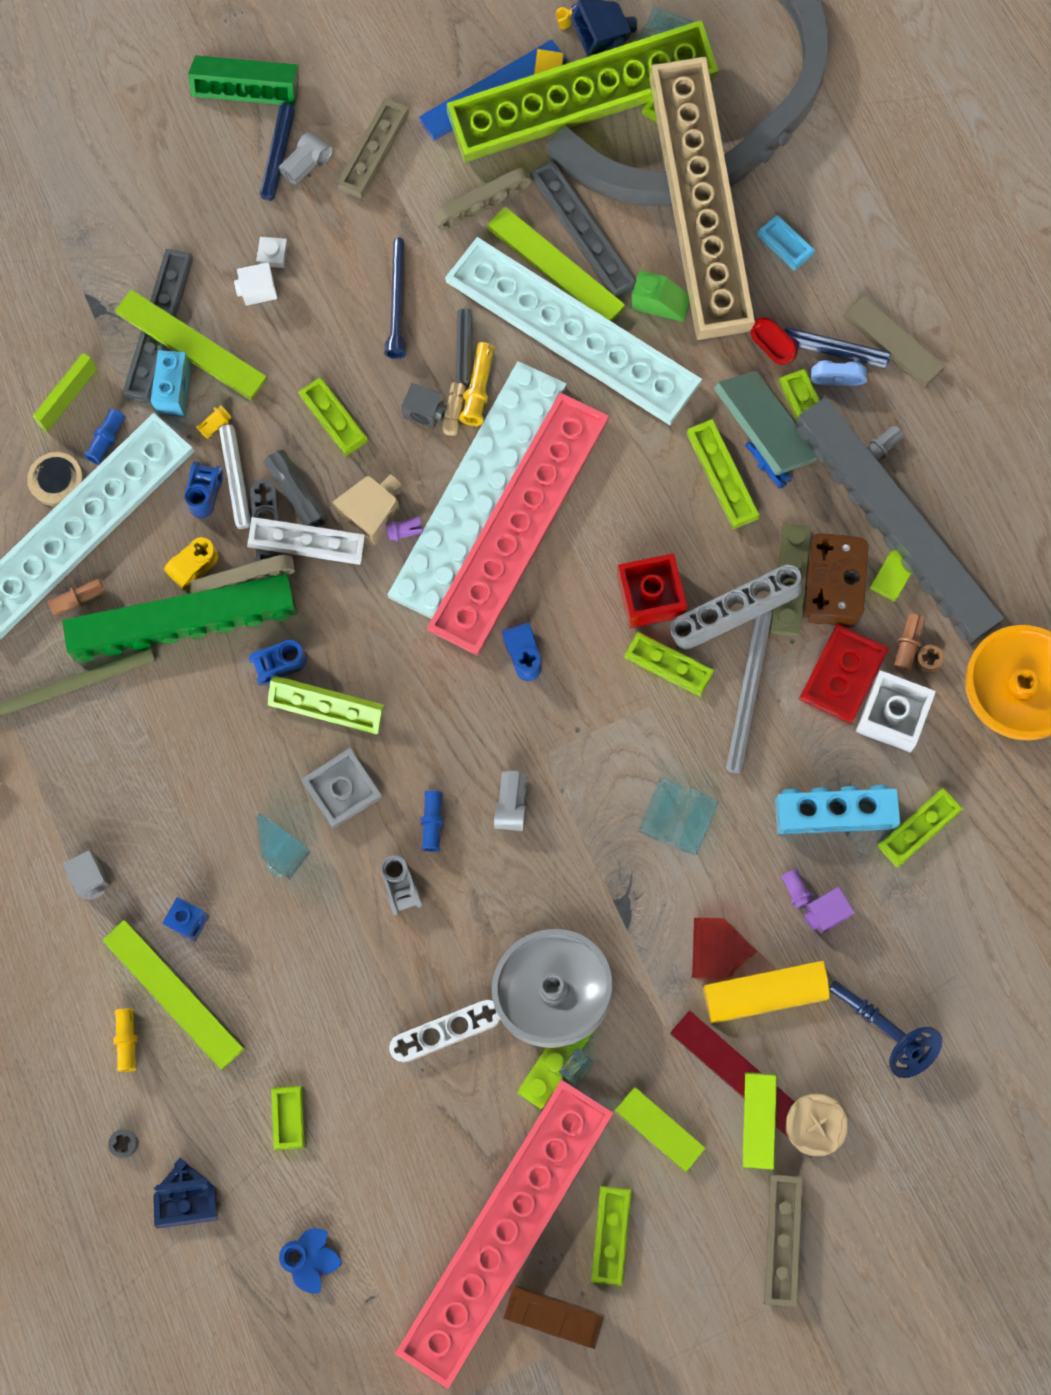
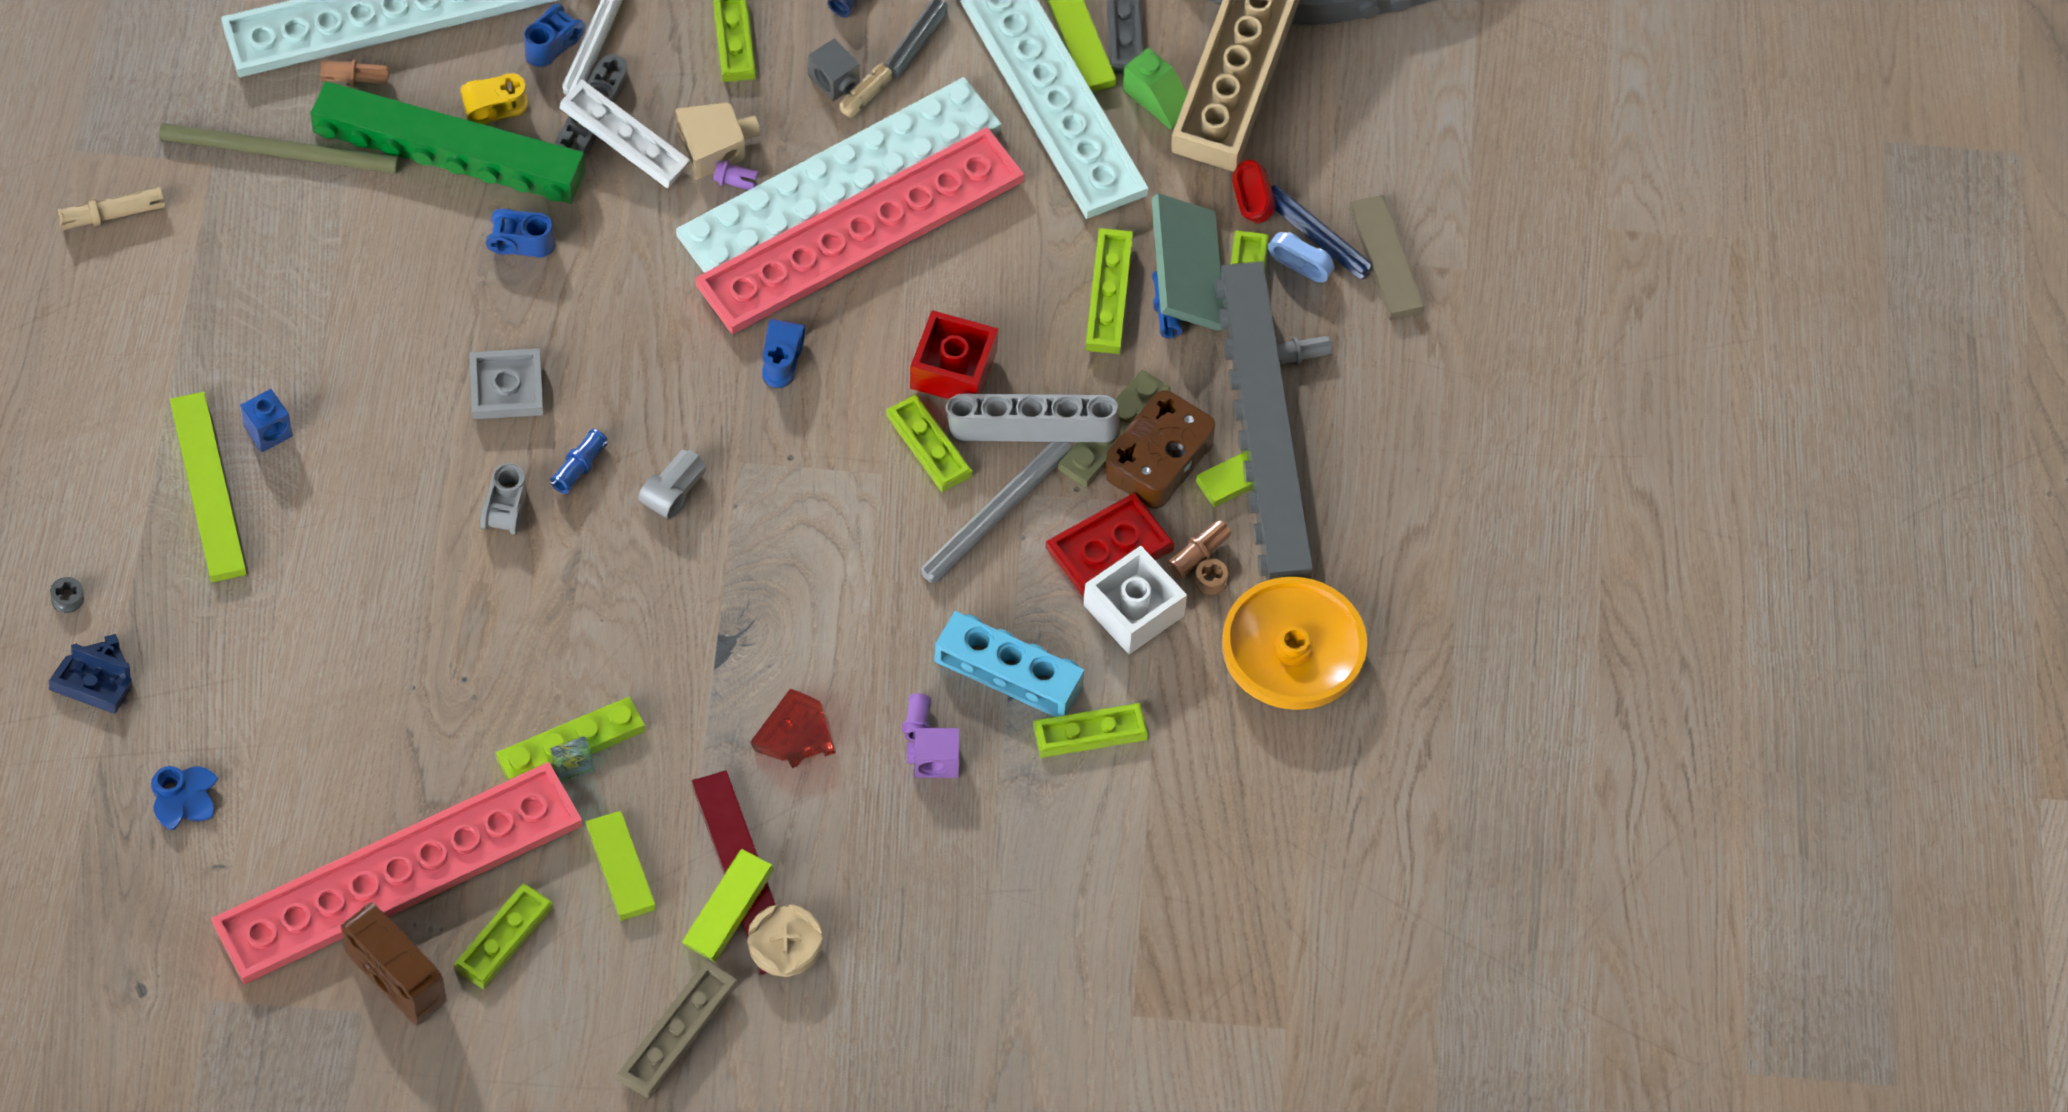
camera: 20 degrees right, 15 degrees down
(87, 875) = (193, 330): light grey brick -> none
(125, 1040) = (132, 500): yellow pin -> none
(258, 570) = (560, 133): dark tan beam -> none
(279, 848) = (405, 406): clear light blue slope -> none
(288, 1118) = (248, 658): lime tile -> none
(294, 488) = (646, 69): dark grey axle -> none
(325, 704) = (542, 297): plate -> none
(447, 1036) = (459, 668): white beam -> none
(476, 395) = (896, 88): yellow pin -> none
(552, 988) = (596, 670): light grey dish -> none
(678, 816) = (839, 588): clear light blue slope -> none
(766, 992) = (818, 794): yellow brick -> none
(785, 242) = (1334, 106): medium azure tile -> none
(906, 1043) = (932, 903): dark blue dish -> none

